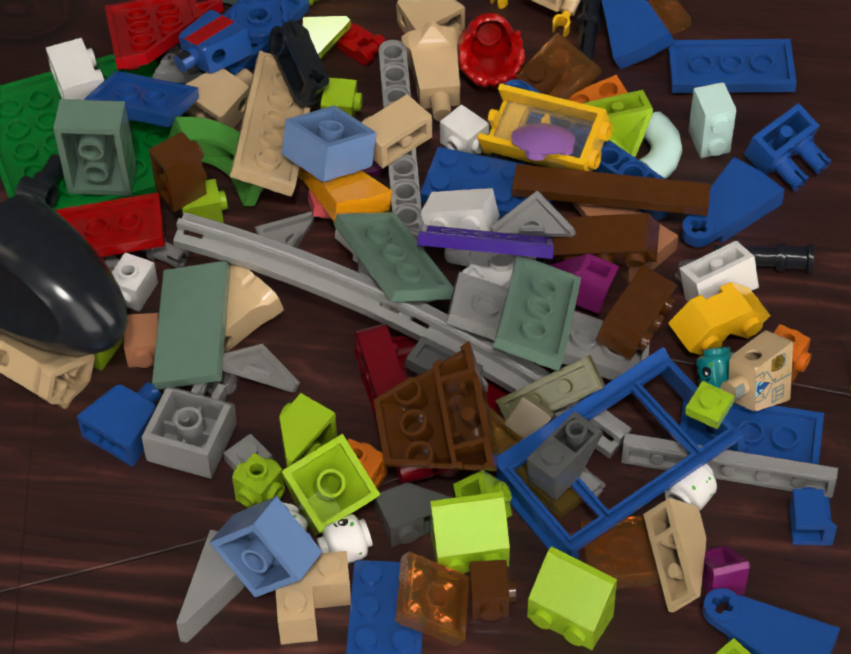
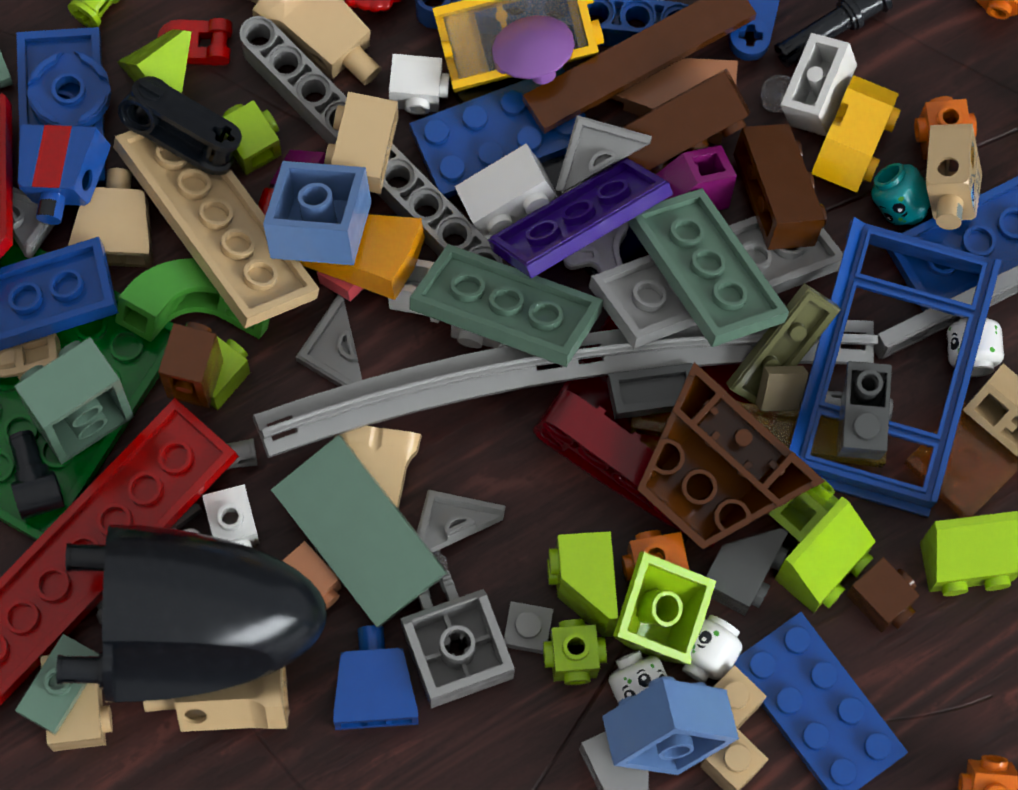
camera: 45 degrees left, 20 degrees up
(432, 599) = (846, 648): clear orange plate -> none
(709, 405) = (950, 252): lime plate -> none

